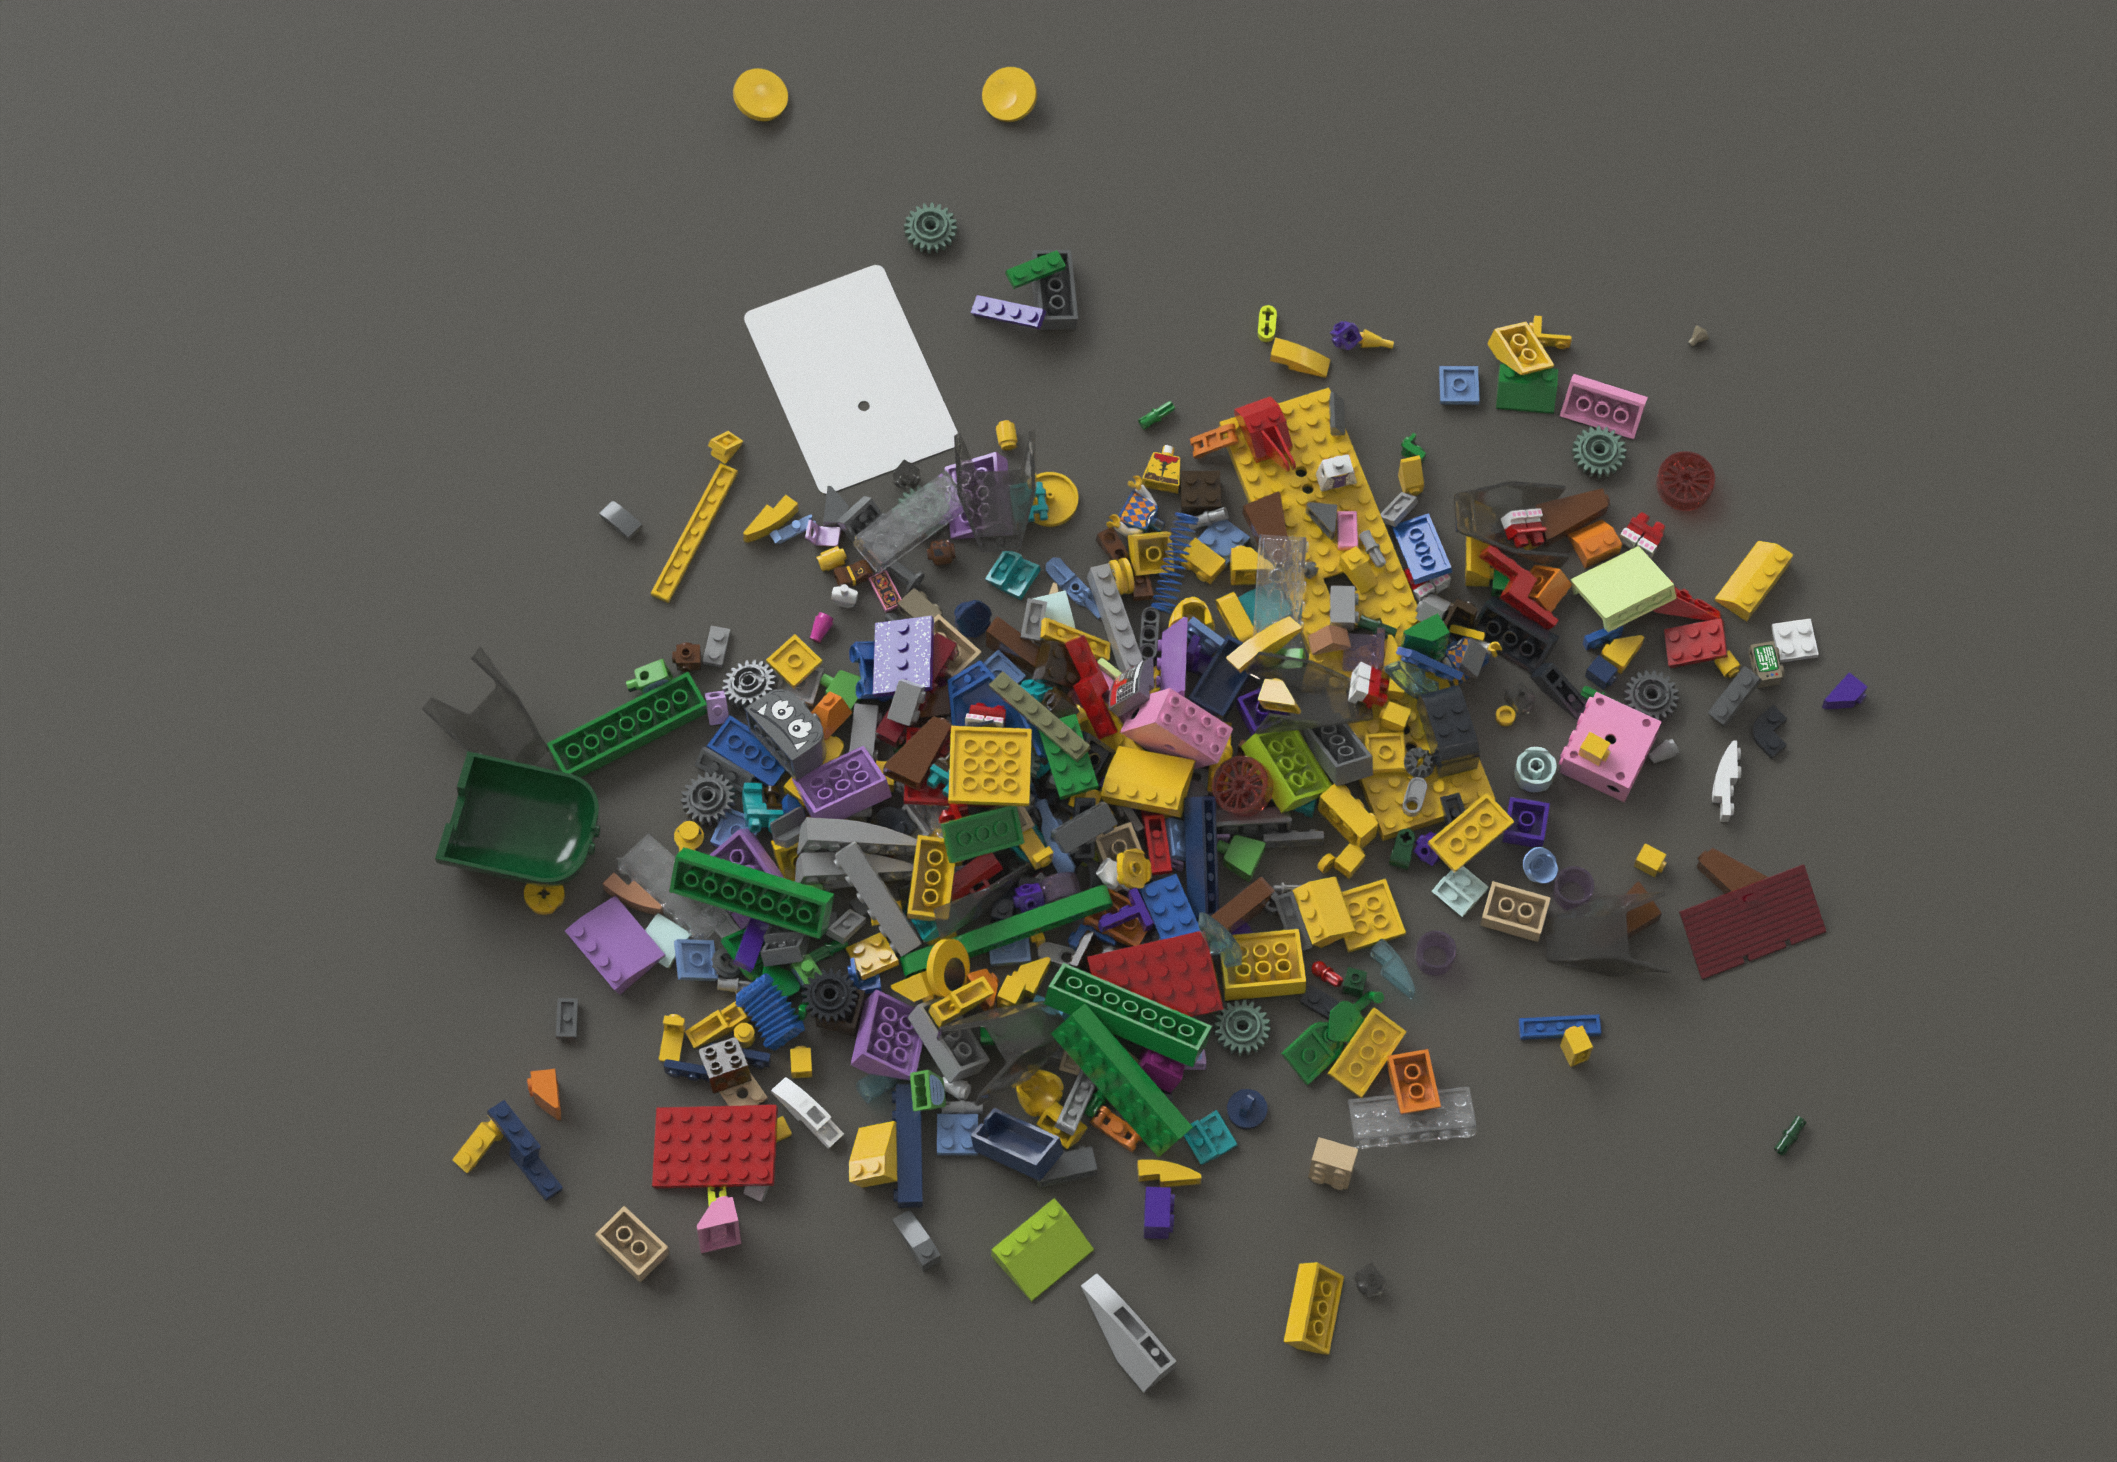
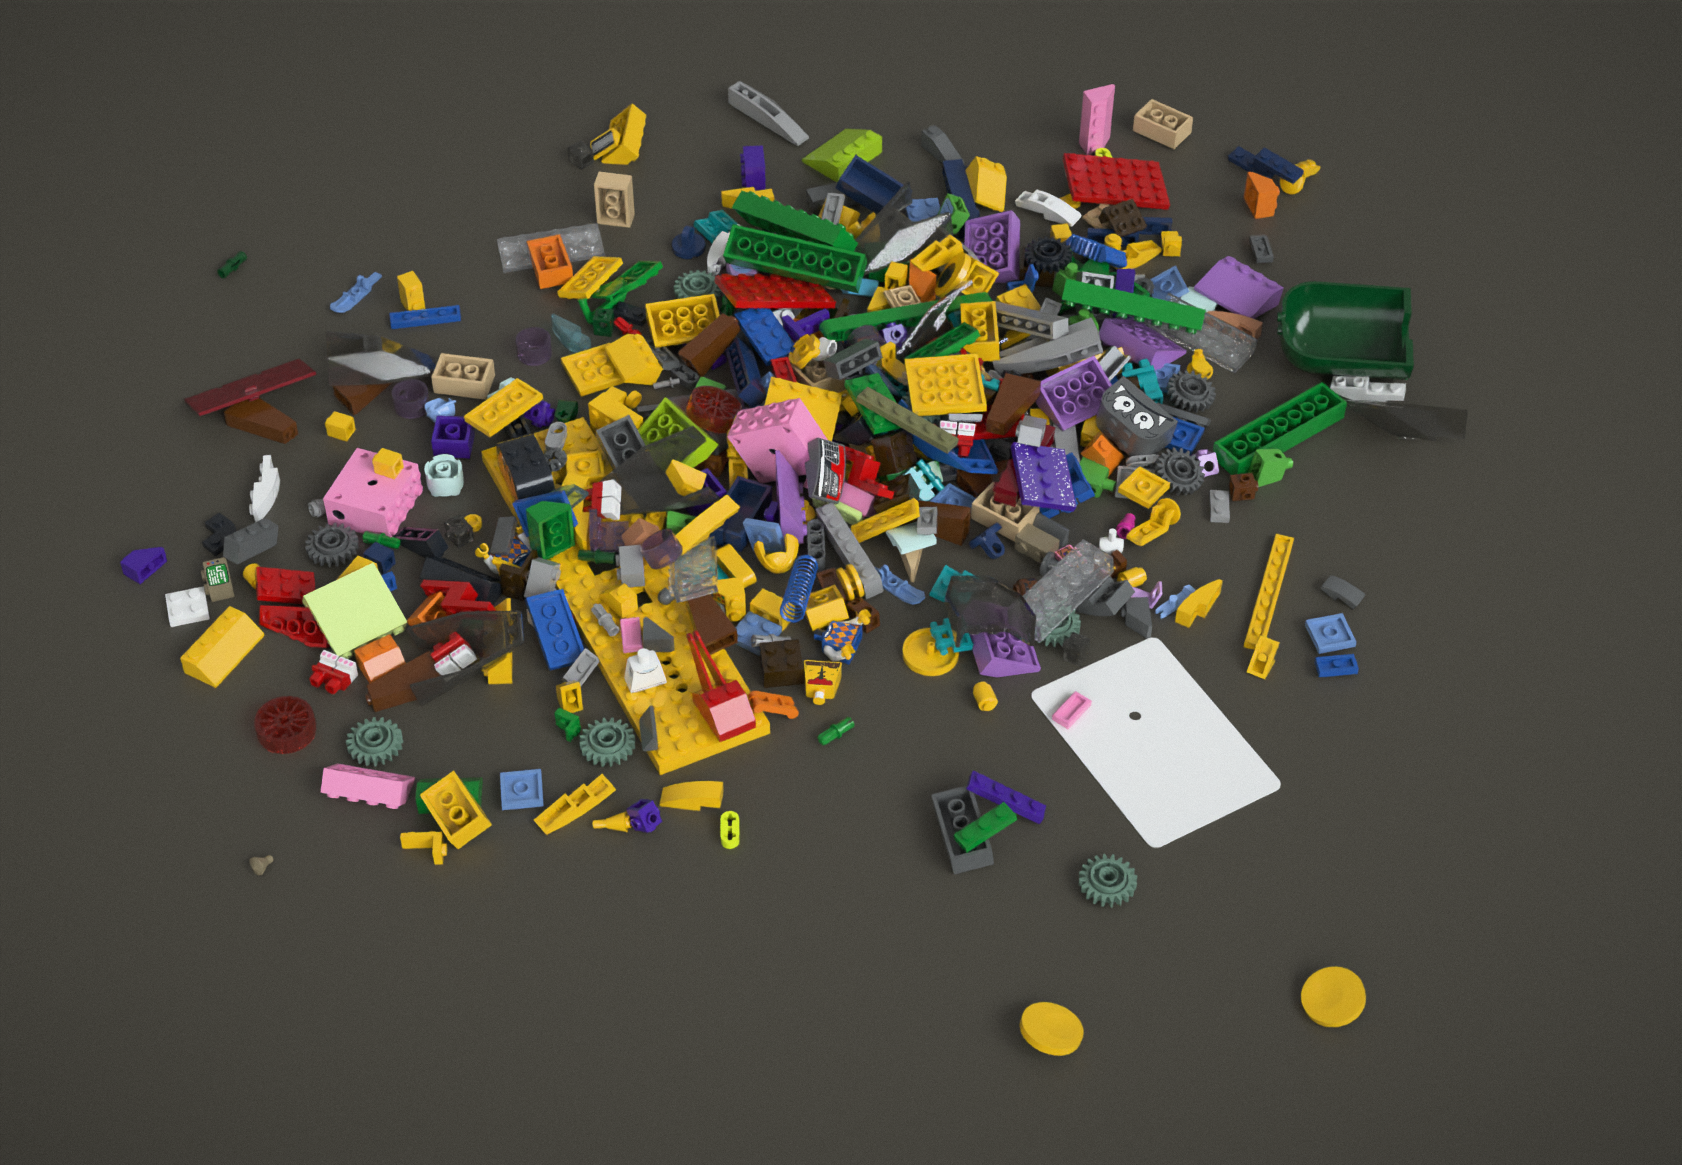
camera: 175 degrees right, 20 degrees down
(649, 470) = (1330, 633): none -> medium blue plate
(654, 432) = (1336, 665): none -> blue plate
(795, 618) = (1162, 515): none -> yellow piece
(924, 414) = (1071, 710): none -> bright pink tile
(1017, 965) = (895, 296): none -> tan piece
(1211, 1081) = (715, 258): none -> white slope
(1220, 940) = (724, 302): clear light blue slope -> none
(1320, 617) = (661, 549): none -> piece
(1338, 1286) = (605, 143): none -> slope
(1389, 423) = (607, 742): none -> sand green gear
(1409, 364) = (575, 805): none -> yellow slope
(1649, 1068) = (355, 294): none -> medium blue piece

